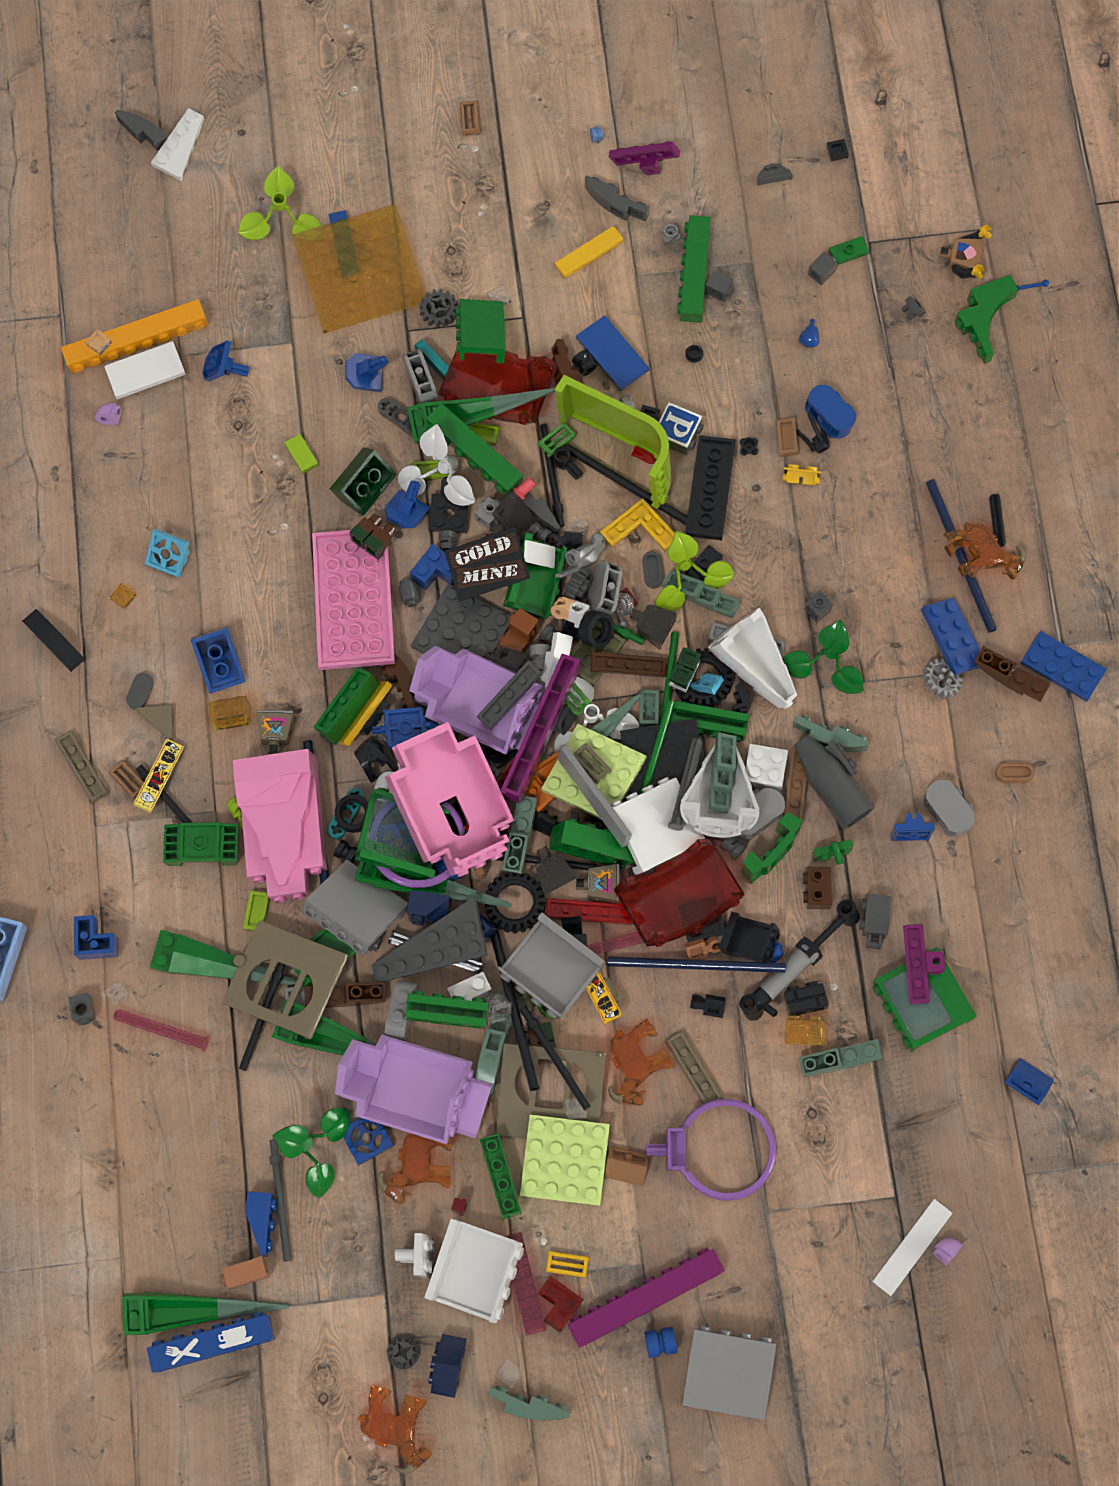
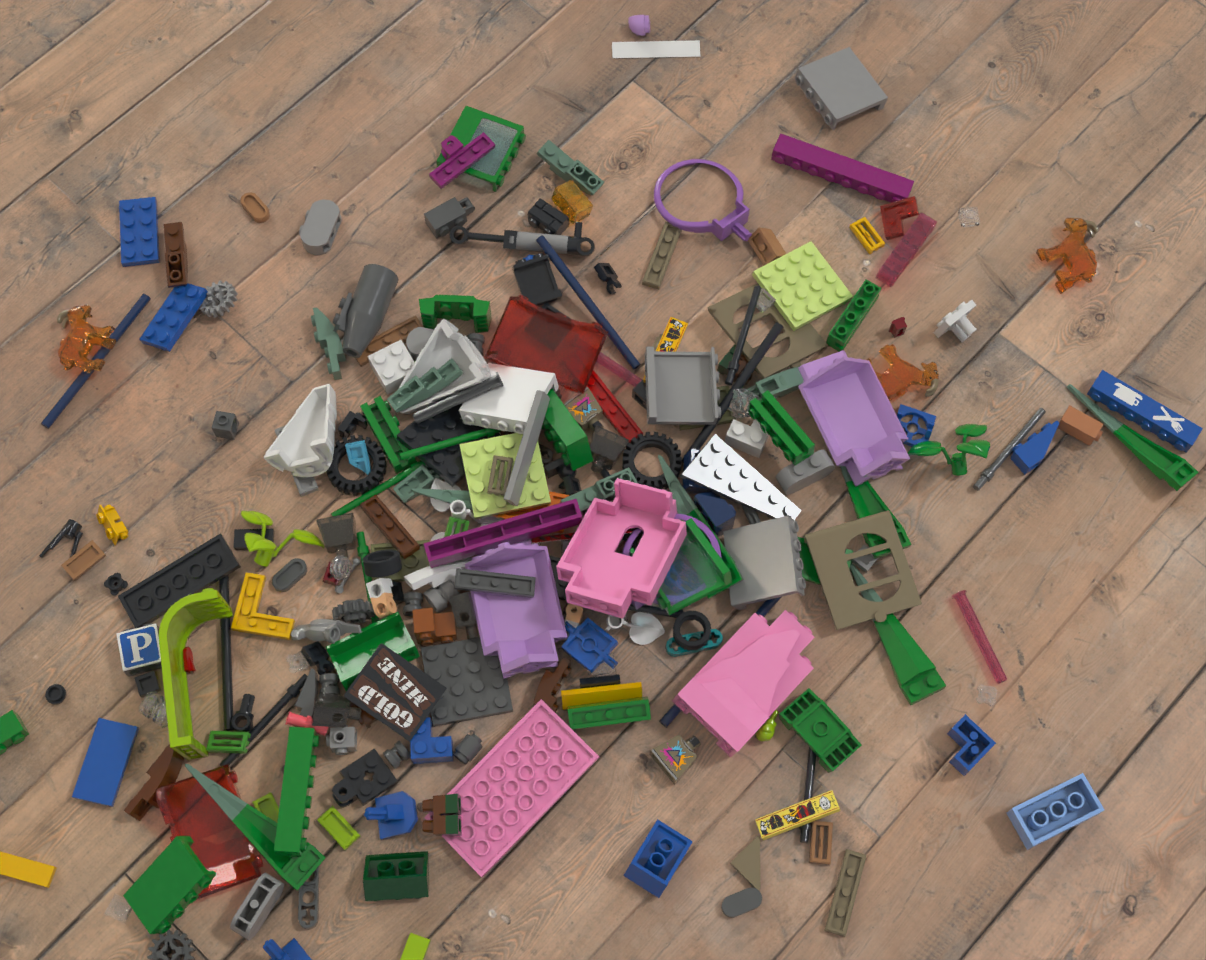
camera: 135 degrees left, 5 degrees down
(79, 1001) = (1019, 715): dark grey brick -> none
(230, 713) = (695, 803): clear yellow brick -> none
(256, 910) = (829, 645): lime tile -> none
(276, 978) = (912, 565): black bar -> none
(345, 851) = (724, 614): black wheel -> none
(352, 994) = (824, 517): reddish brown slope -> none
(371, 751) = (632, 658): black helmet -> none
(412, 1355) = (1014, 290): dark grey gear -> none
(432, 358) = (229, 910): teal beam -> none
(434, 444) = (323, 810): white plant -> none
(447, 1365) = (1004, 247): dark blue brick -> none
(474, 1270) = (929, 279): white panel -> none
(536, 1410) = (976, 182): sand green slope -> none
(539, 554) = (350, 660): white sticker -> none
(572, 925) = (634, 407): black plate -> none
(584, 363) = (134, 777): black wheel -> none
(604, 587) = (338, 587): light grey brick -> none
(634, 1064) = (695, 292): clear orange animal -> none
(660, 1342) = (861, 140): blue wheel -> none
(684, 669) = (362, 470): dark green hips -> none
(698, 948) = (573, 311): nougat plate -> none
(704, 595) = (282, 519): sand green slope -> none
(818, 888) = (457, 268): reddish brown brick -> none
(830, 411) = (33, 540): blue brick -> none
(835, 641) = (250, 371): green plant -> none
(836, 849) = (416, 276): green plate -> none
(912, 829) = (364, 237): blue piece -> none
(997, 519) = (41, 357): black axle -> none
(1029, 1081) = (481, 52): blue panel -> none

